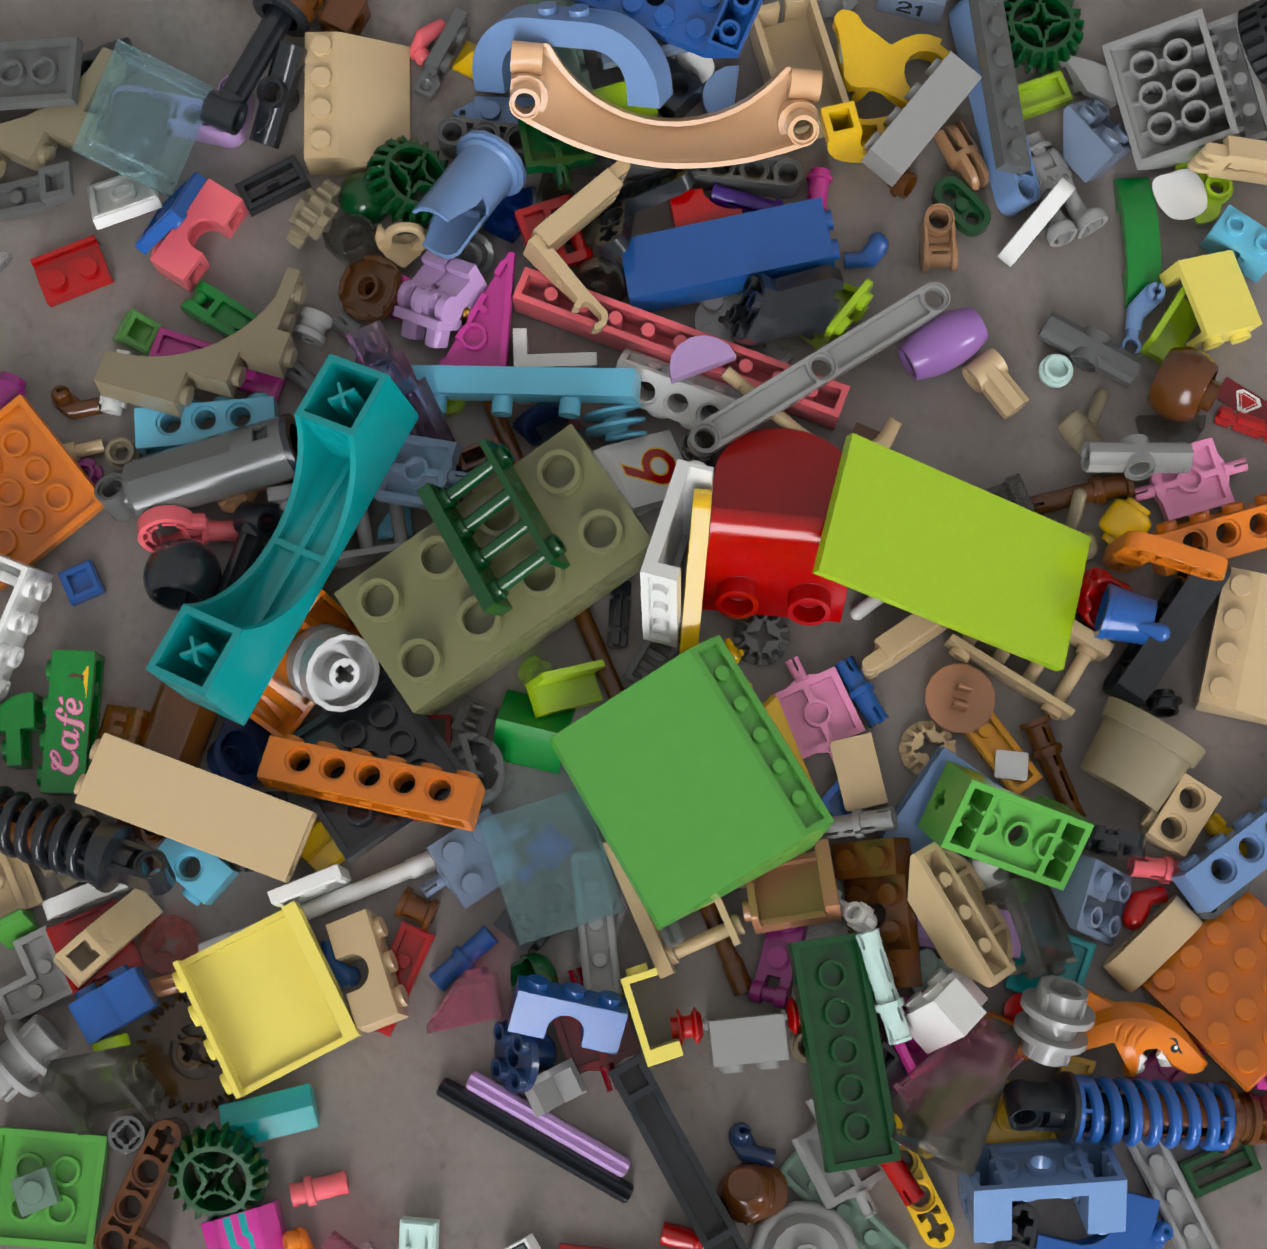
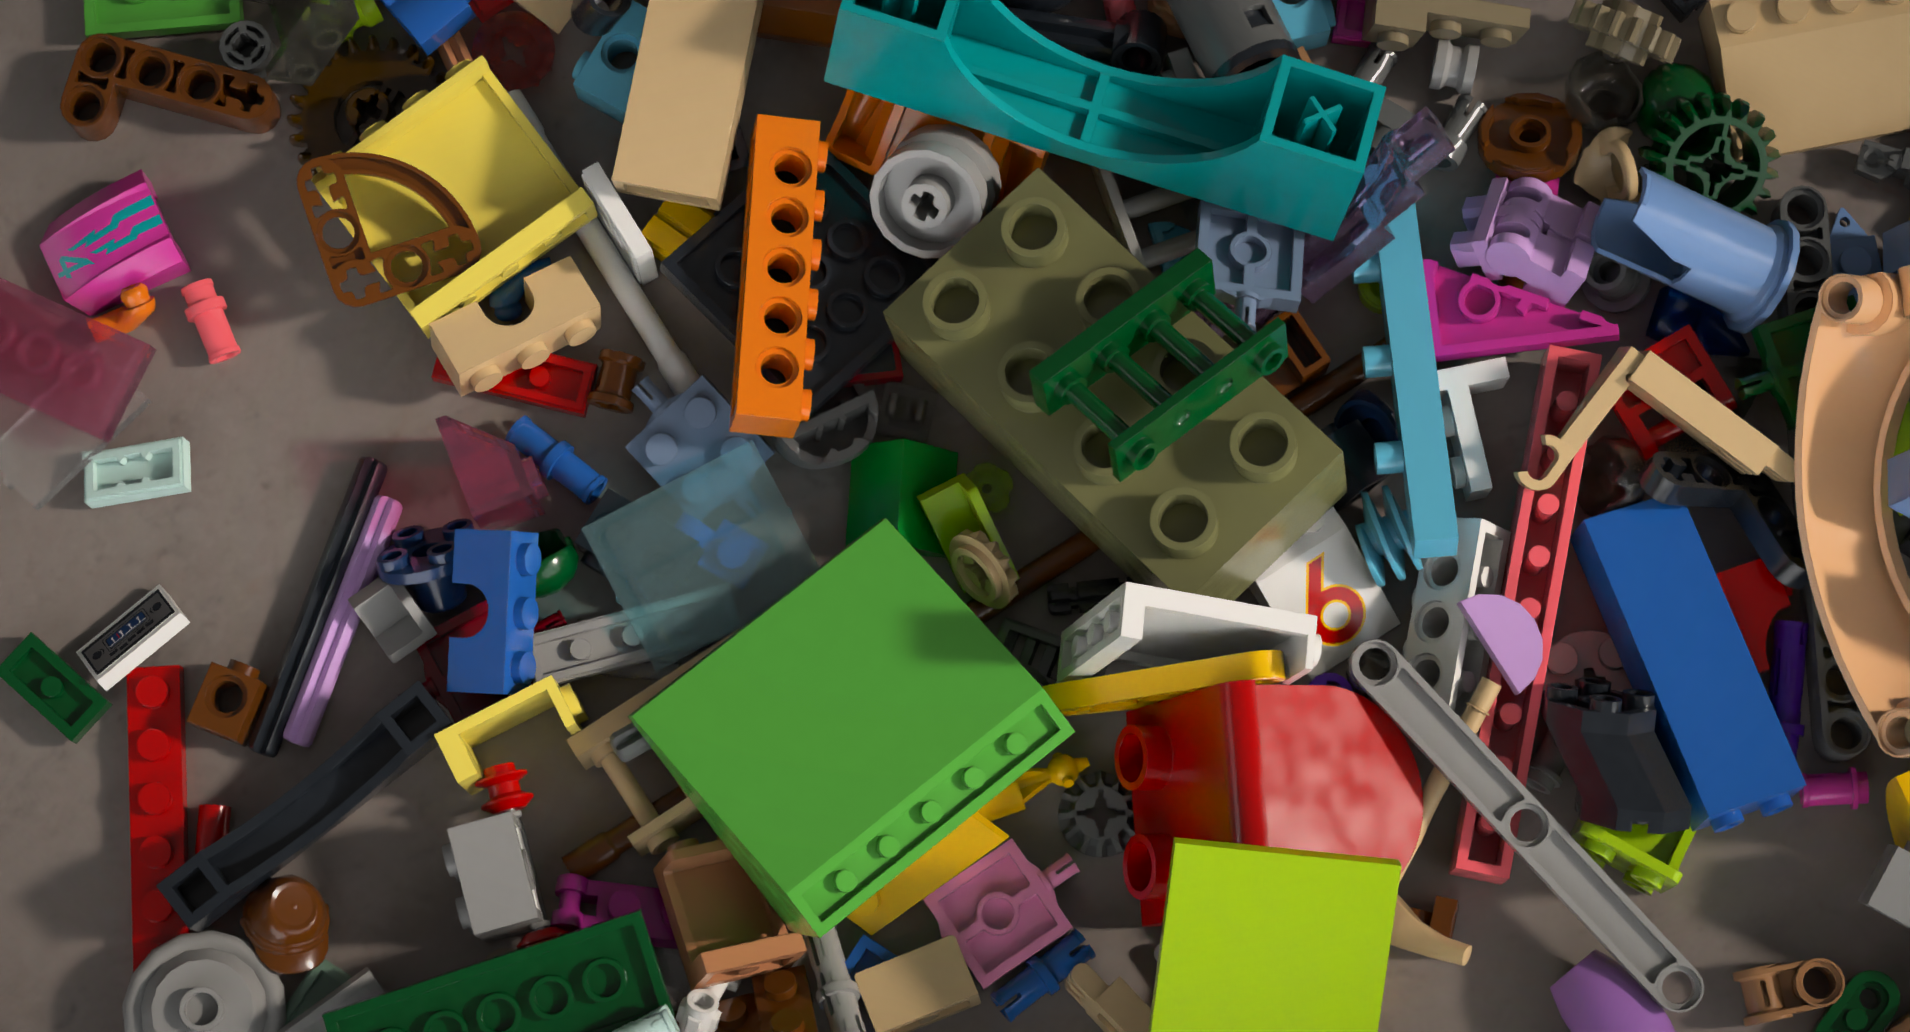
camera: 85 degrees right, 0 degrees up
(211, 1152) = (239, 165): dark green gear -> none
(238, 751) = (792, 85): dark blue piece -> none
(273, 1113) = (290, 234): teal piece -> none
(296, 1072) = (358, 253): none -> reddish brown beam
(594, 681) = (983, 569): none -> tan gear
(598, 1228) = (235, 725): none -> reddish brown brick
(746, 1147) = (350, 908): dark blue arm -> none
(870, 255) = (1744, 888): blue arm -> none
(904, 185) = (1872, 925): reddish brown plate -> none

